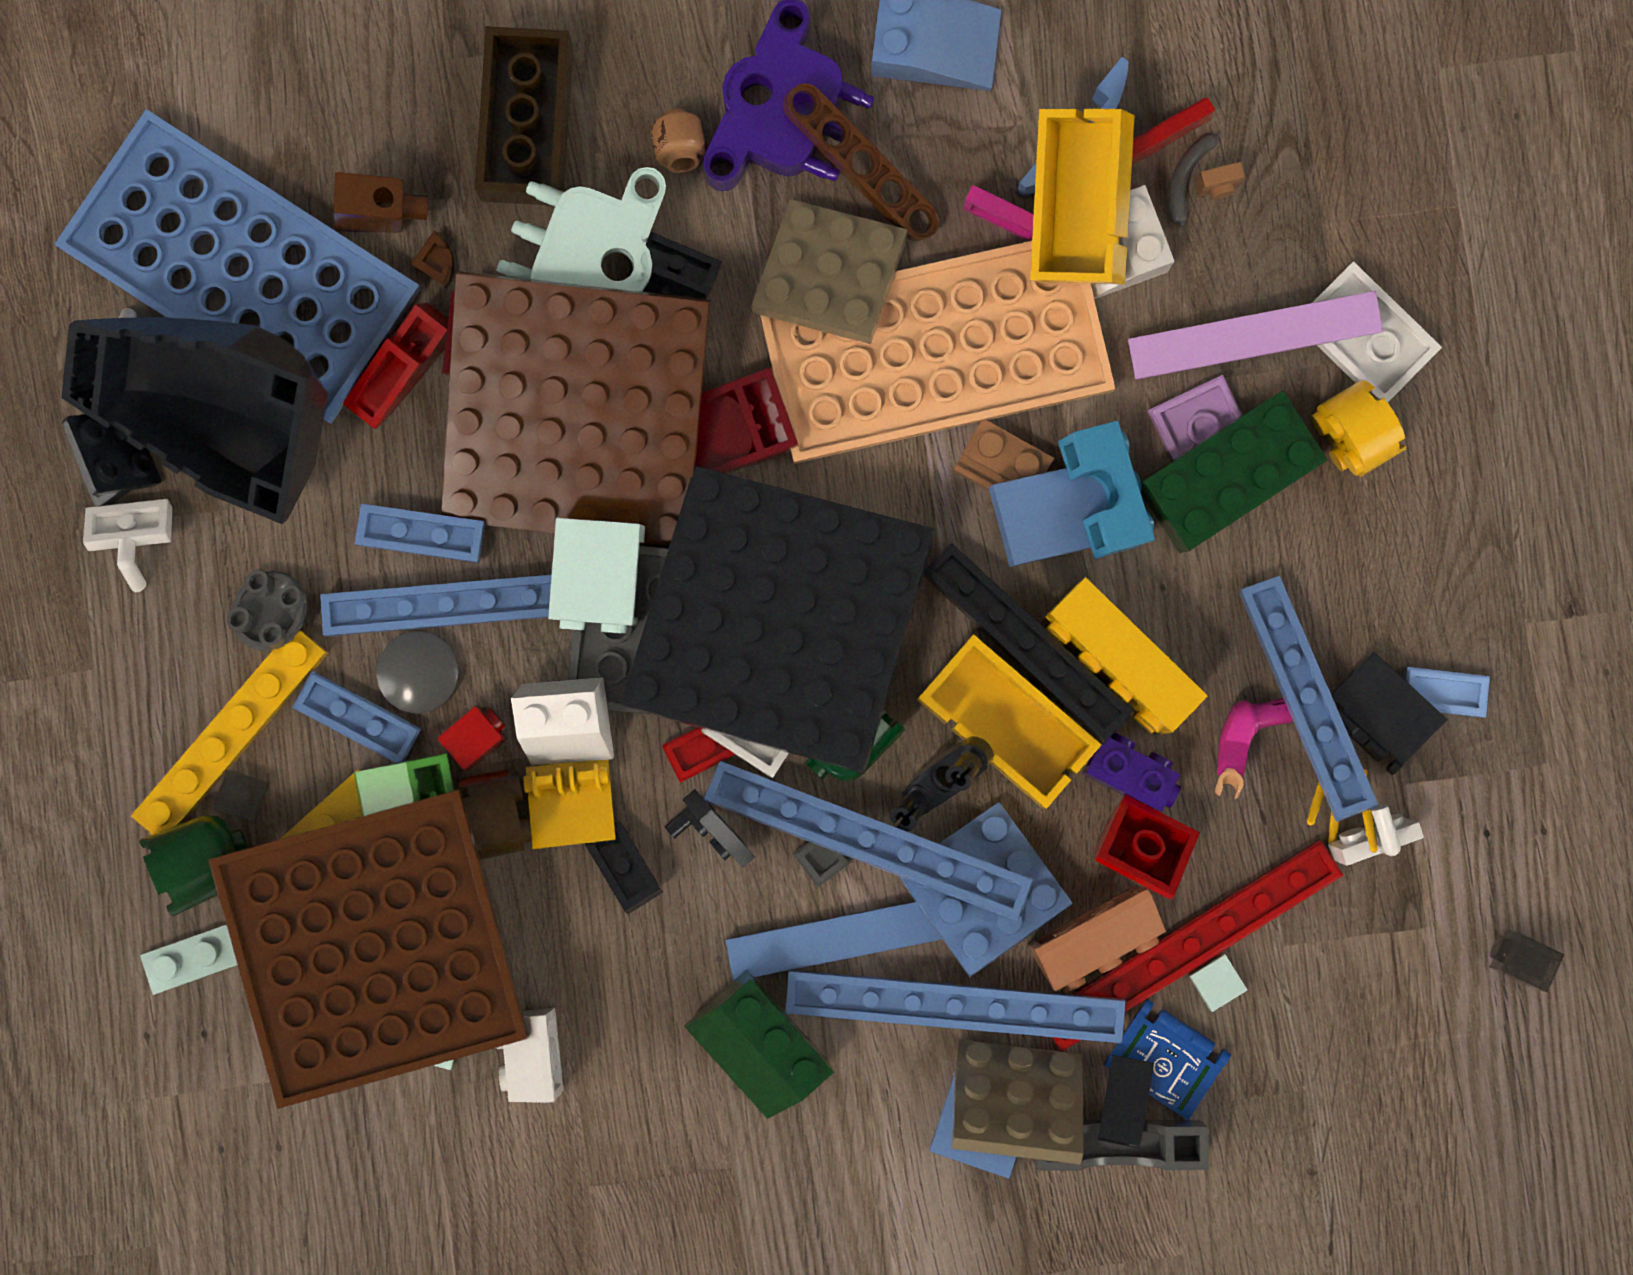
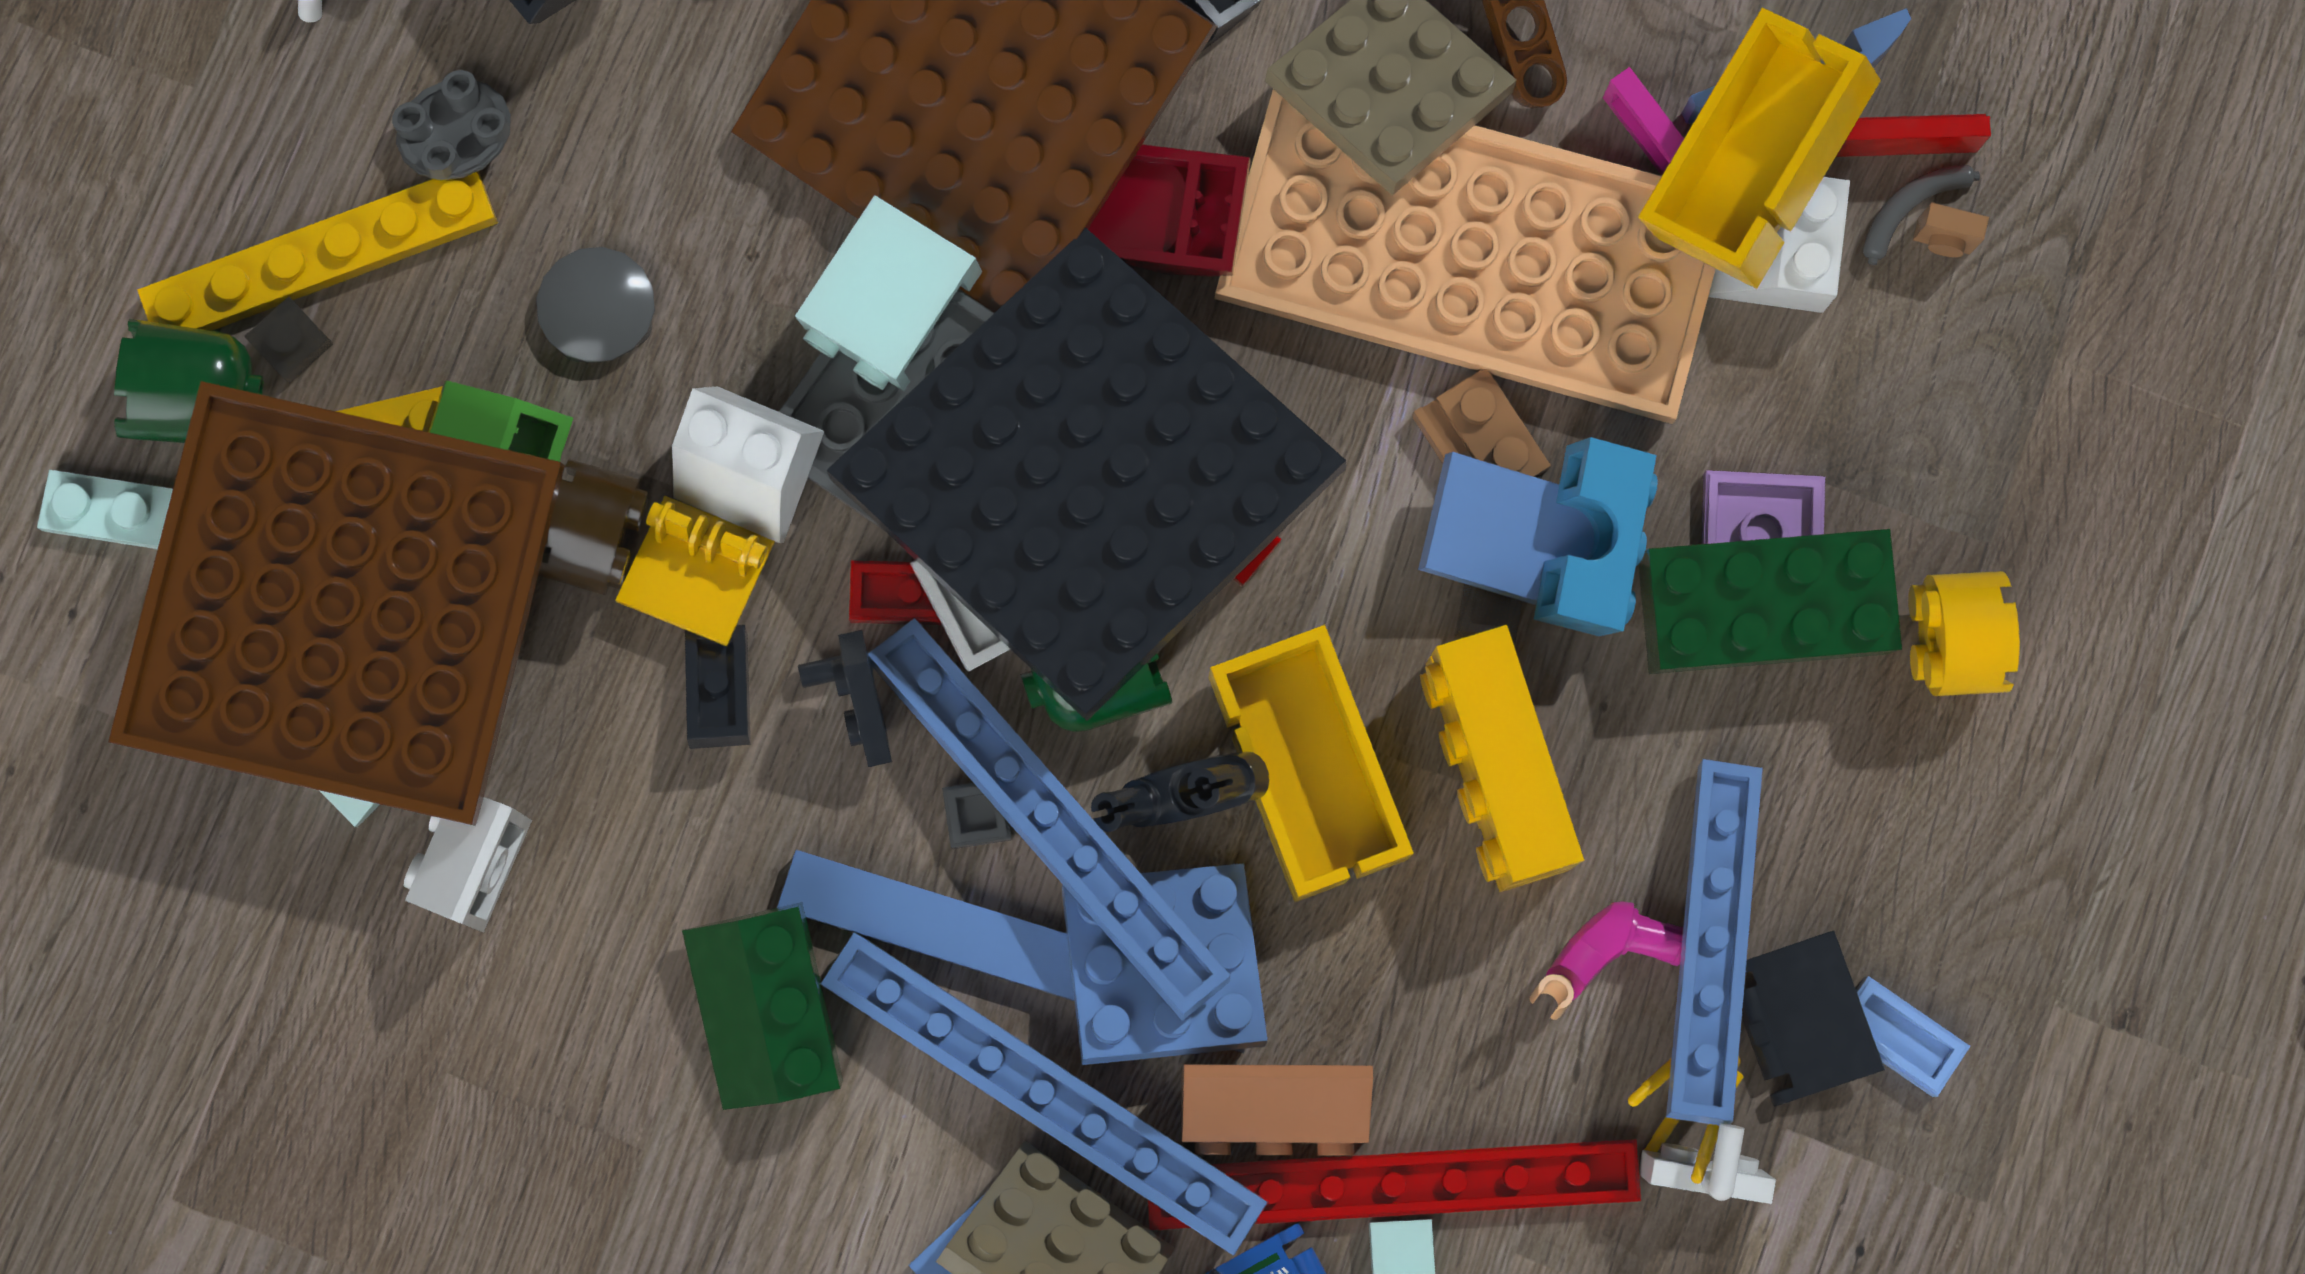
camera: 25 degrees right, 5 degrees down
(357, 718) = (488, 320): medium blue tile -> none
(420, 533) = (695, 134): medium blue plate -> none
(435, 605) = (662, 232): medium blue plate -> none
(473, 737) = (620, 421): red brick -> none
(1028, 644) = (1389, 679): black plate -> none
(1134, 774) = (1435, 918): dark purple brick -> none
(1146, 846) = (1402, 1016): red slope -> none
(1255, 335) = (1893, 446): lavender tile -> none
(1383, 358) = (2040, 521): white plate -> none

